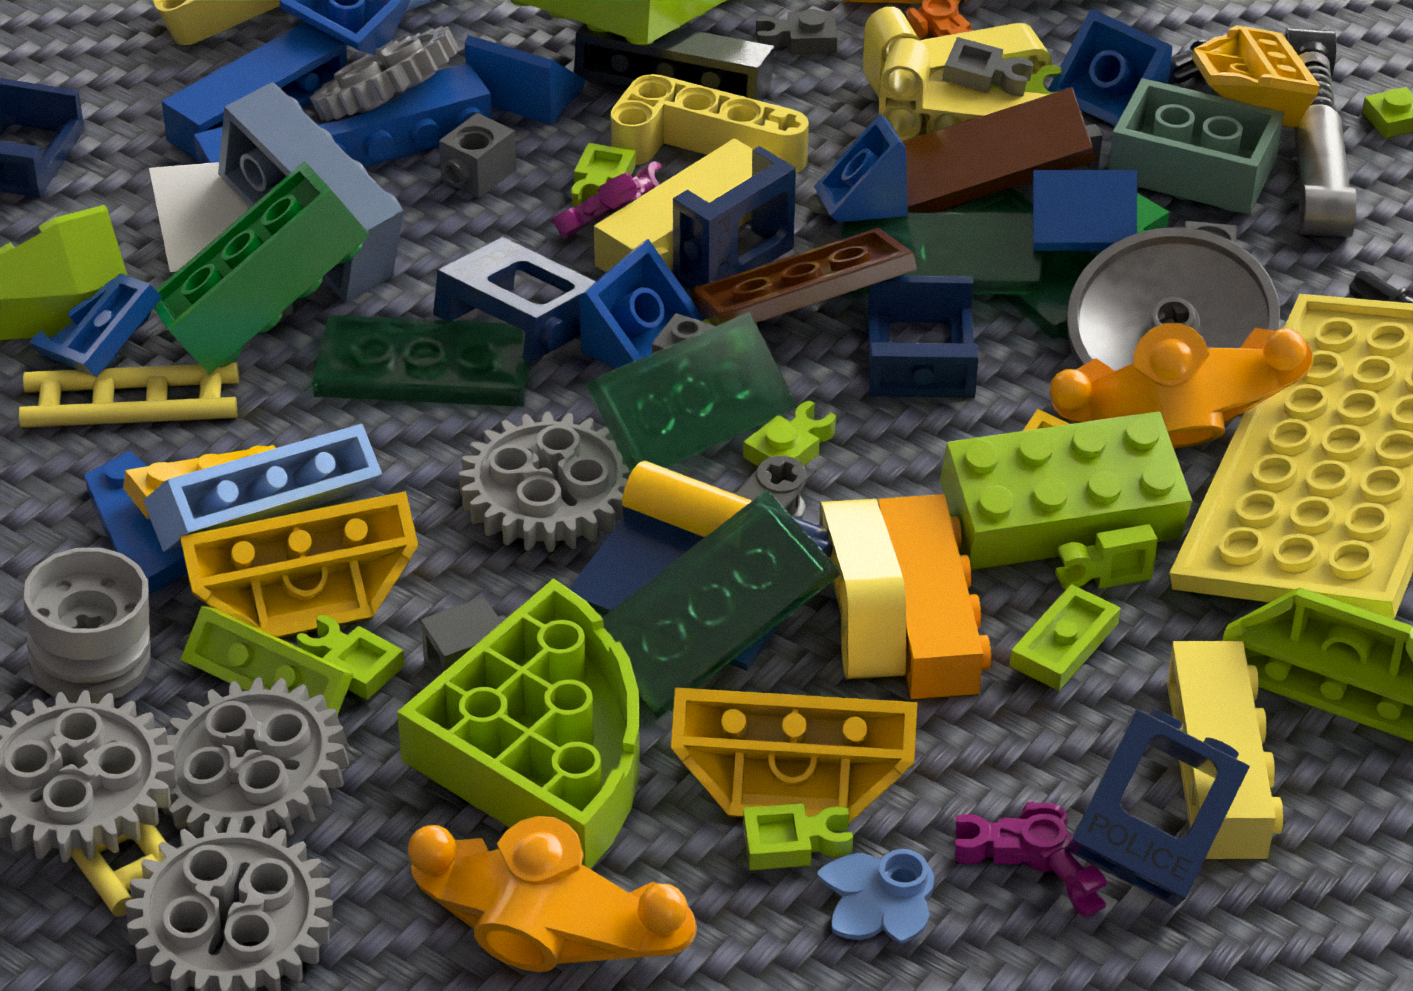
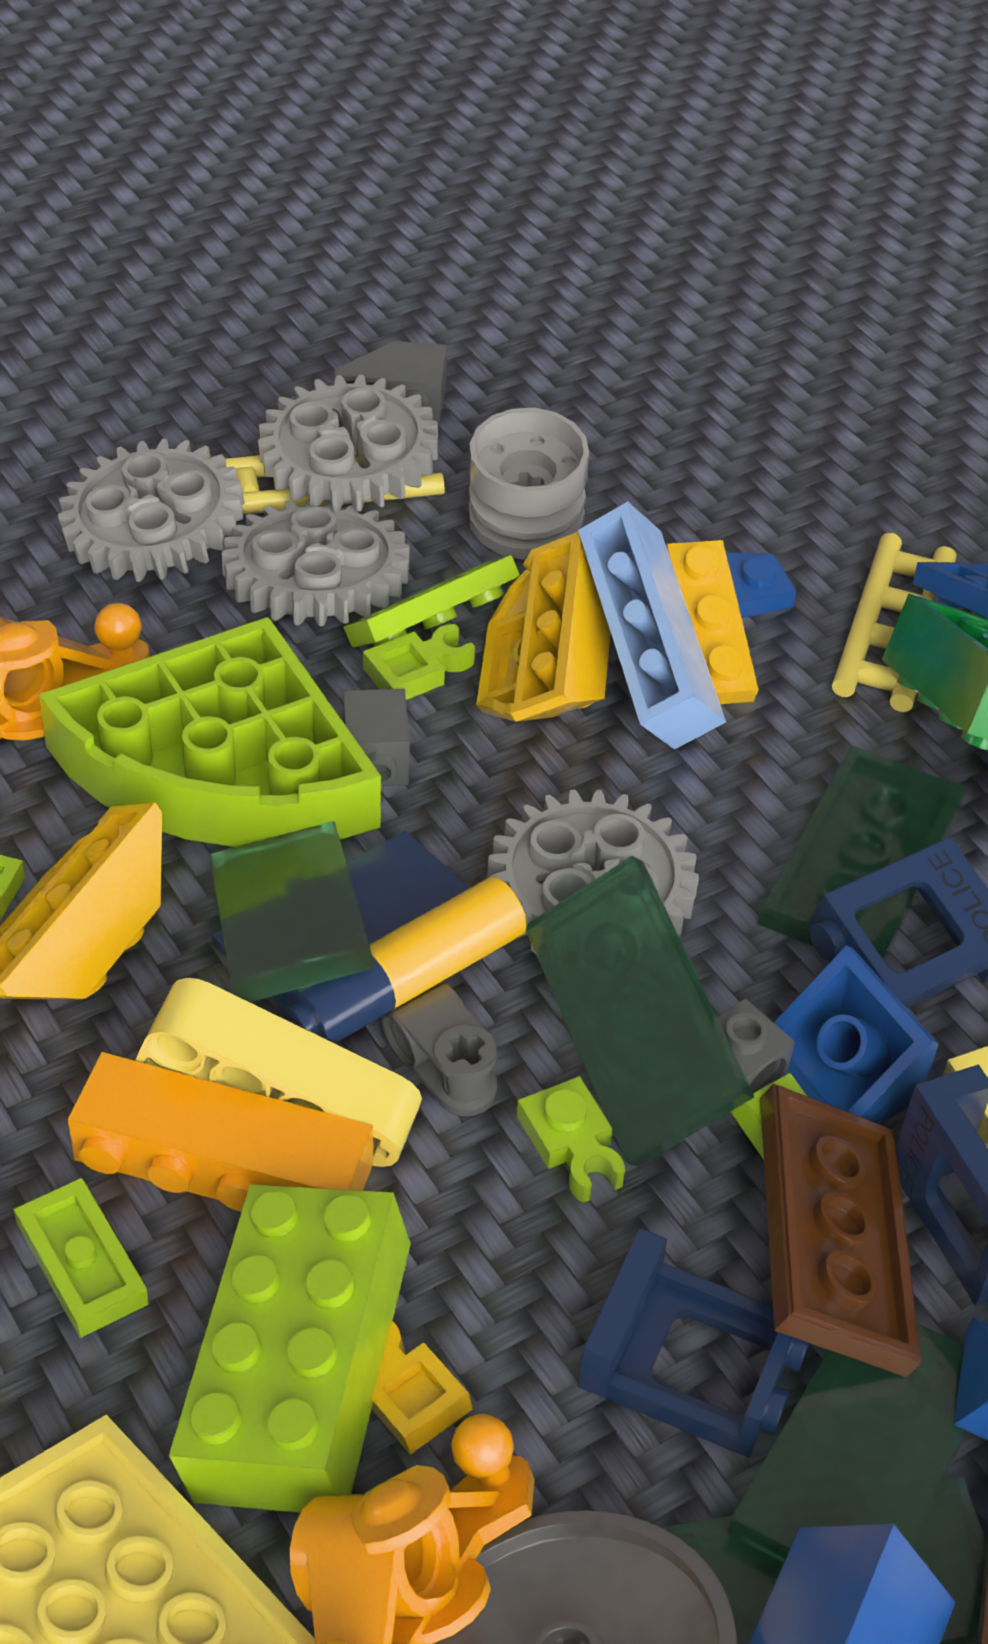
camera: 110 degrees right, 5 degrees up
(1114, 560) = (169, 1363): lime plate -> none

